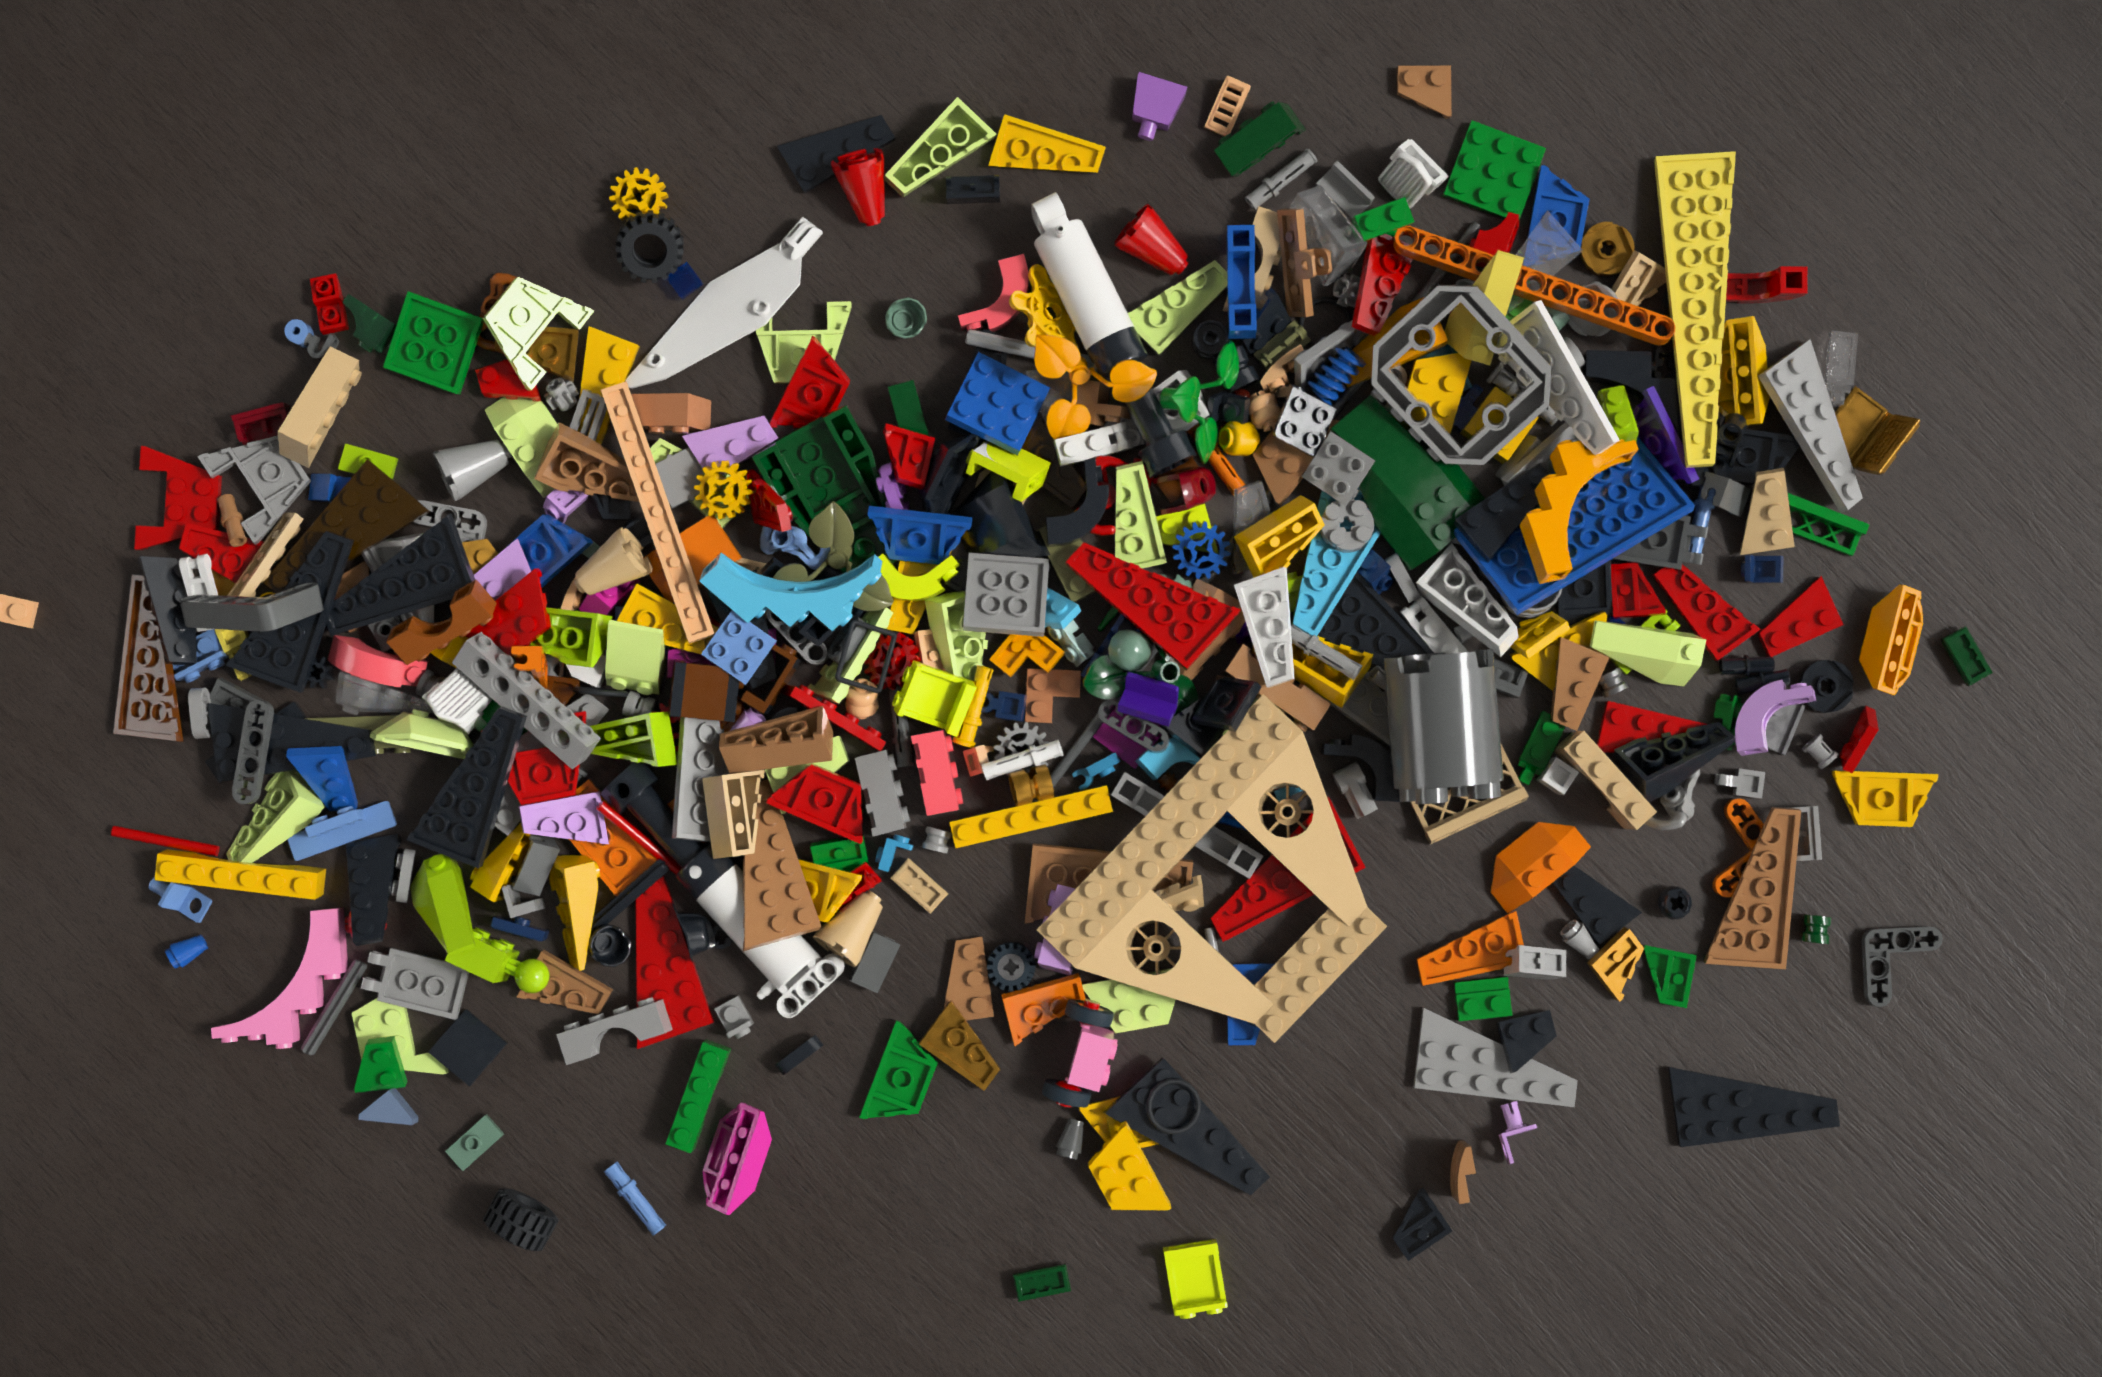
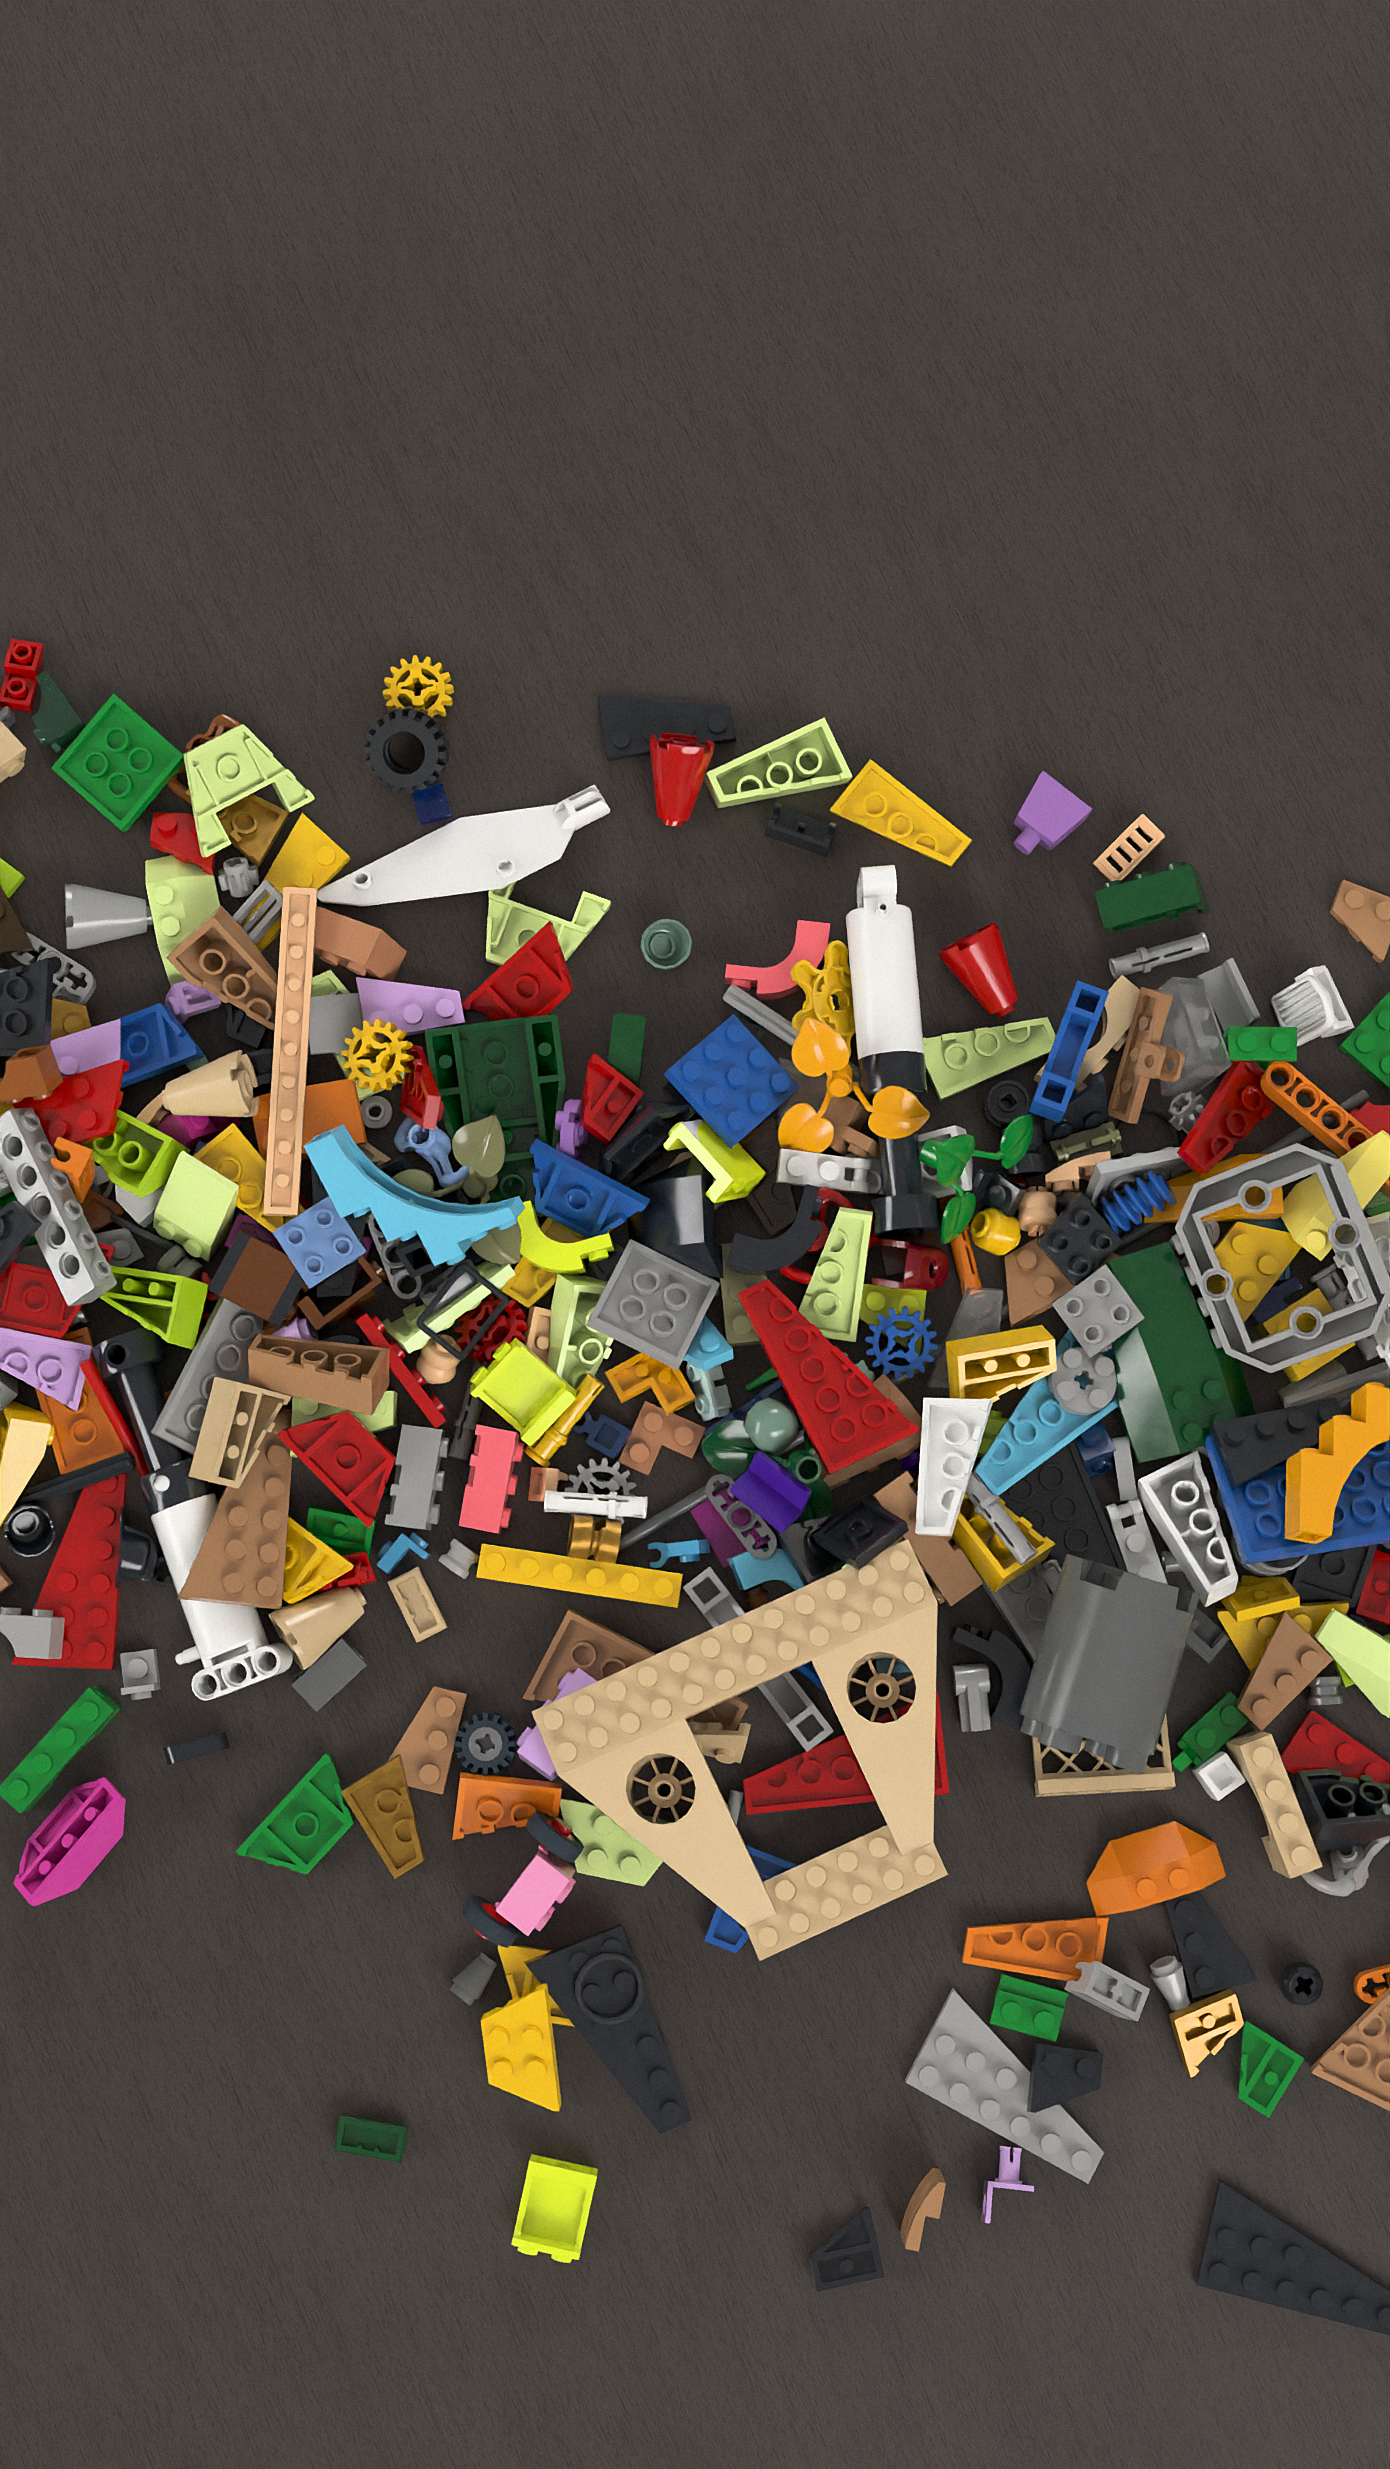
camera: 20 degrees right, 5 degrees down
(744, 538) = (385, 1116): none -> light grey plate

